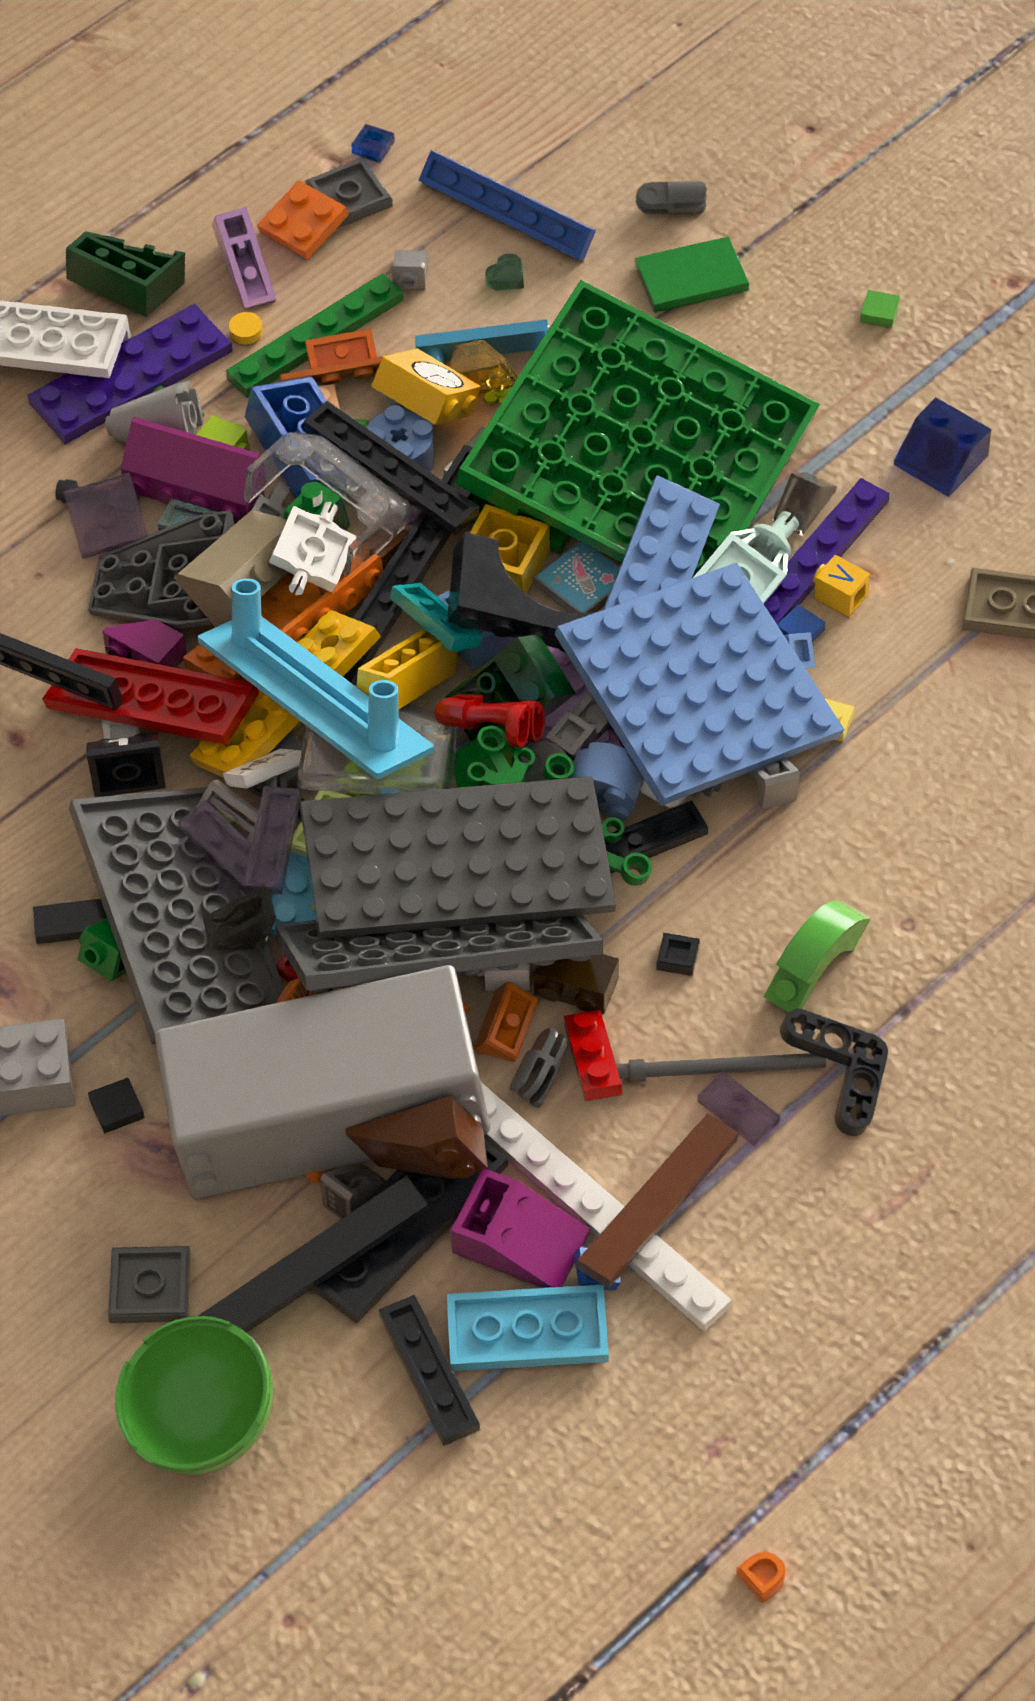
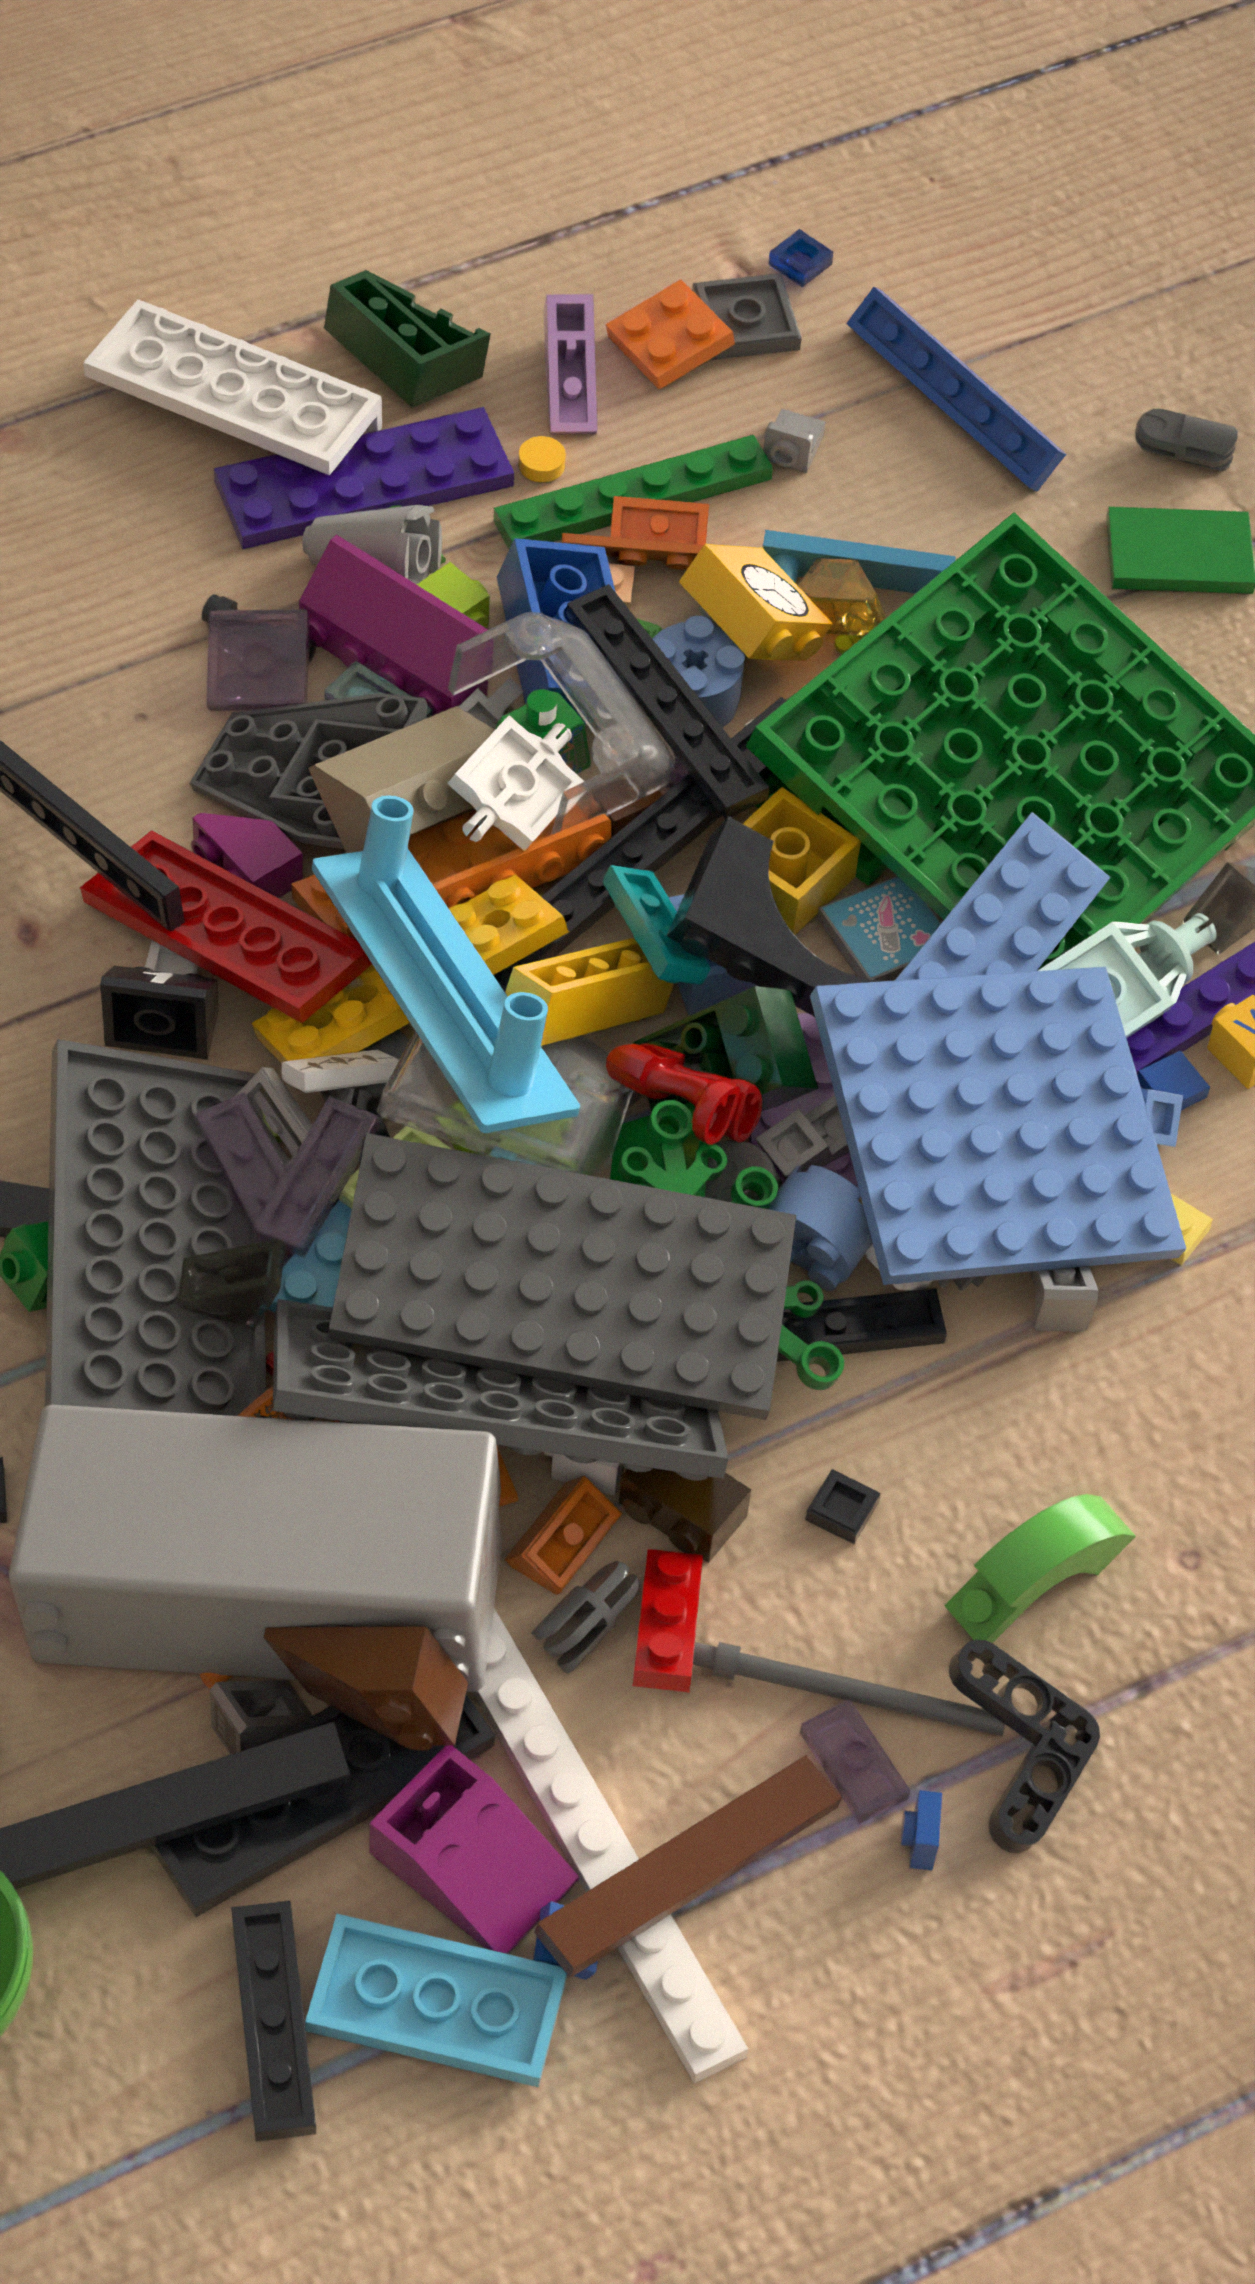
camera: 10 degrees right, 0 degrees up
(506, 273) = (923, 480): clear green tile -> none
(796, 1137) = (922, 1830): none -> blue plate

